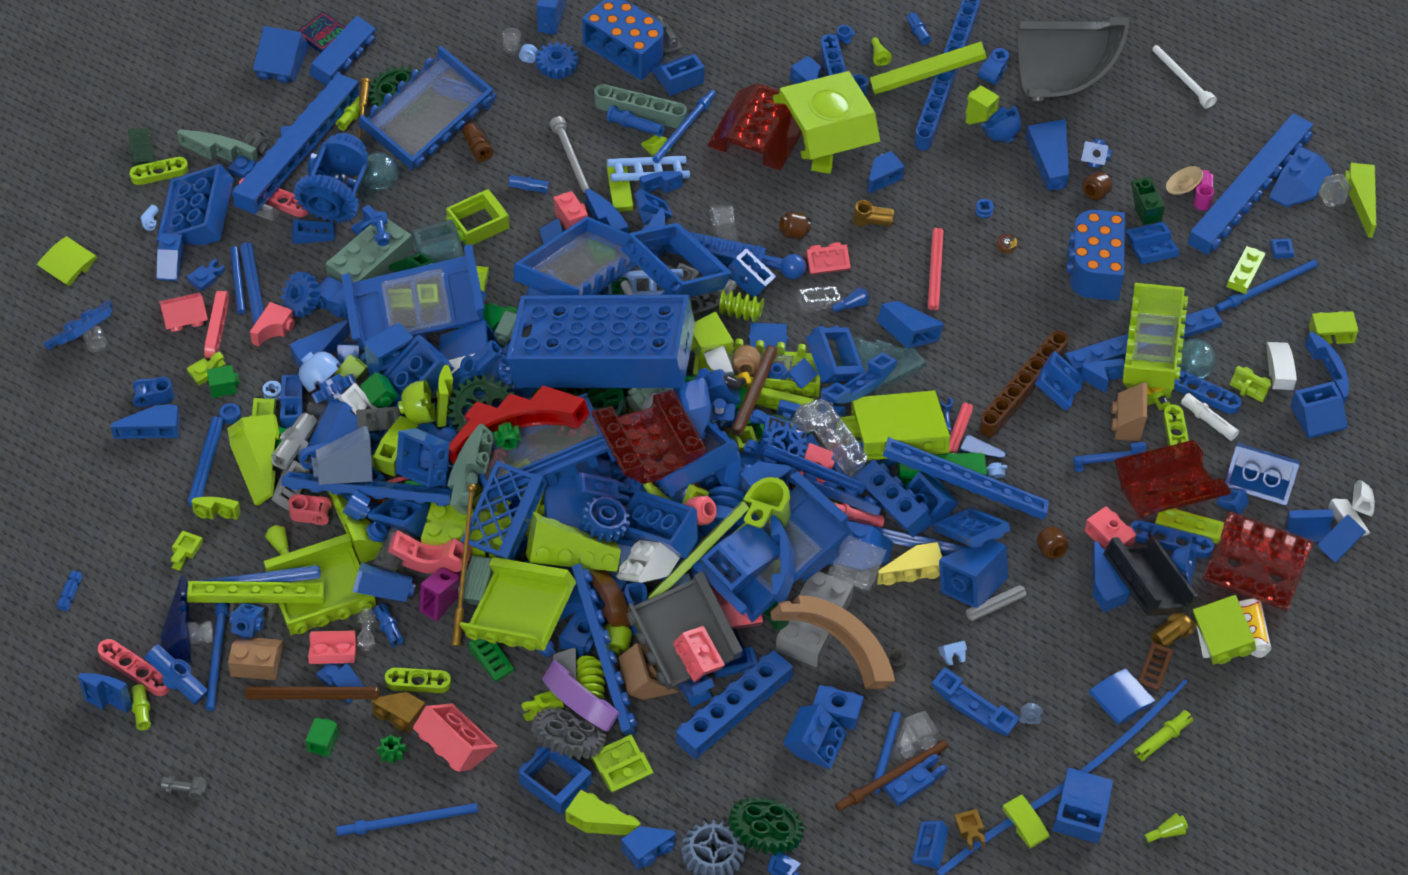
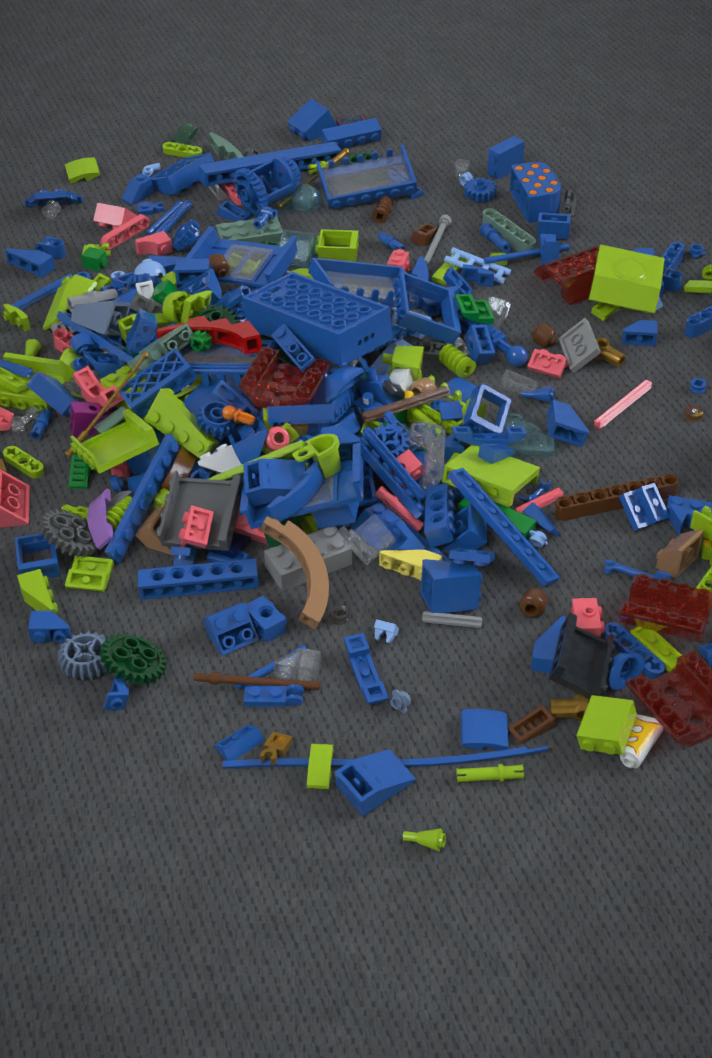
camera: 40 degrees right, 10 degrees down
(400, 315) = (219, 265): none -> reddish brown head
(551, 155) = (423, 234): none -> reddish brown slope
(621, 505) = (230, 412): none -> orange axle
(622, 394) = (293, 347): none -> blue slope
(705, 111) = (548, 248): none -> blue slope
(716, 233) = (474, 309): none -> green slope
(842, 220) = (579, 345): none -> light grey plate
(887, 399) = (494, 452): none -> blue slope
(891, 543) = (406, 538): none -> blue slope

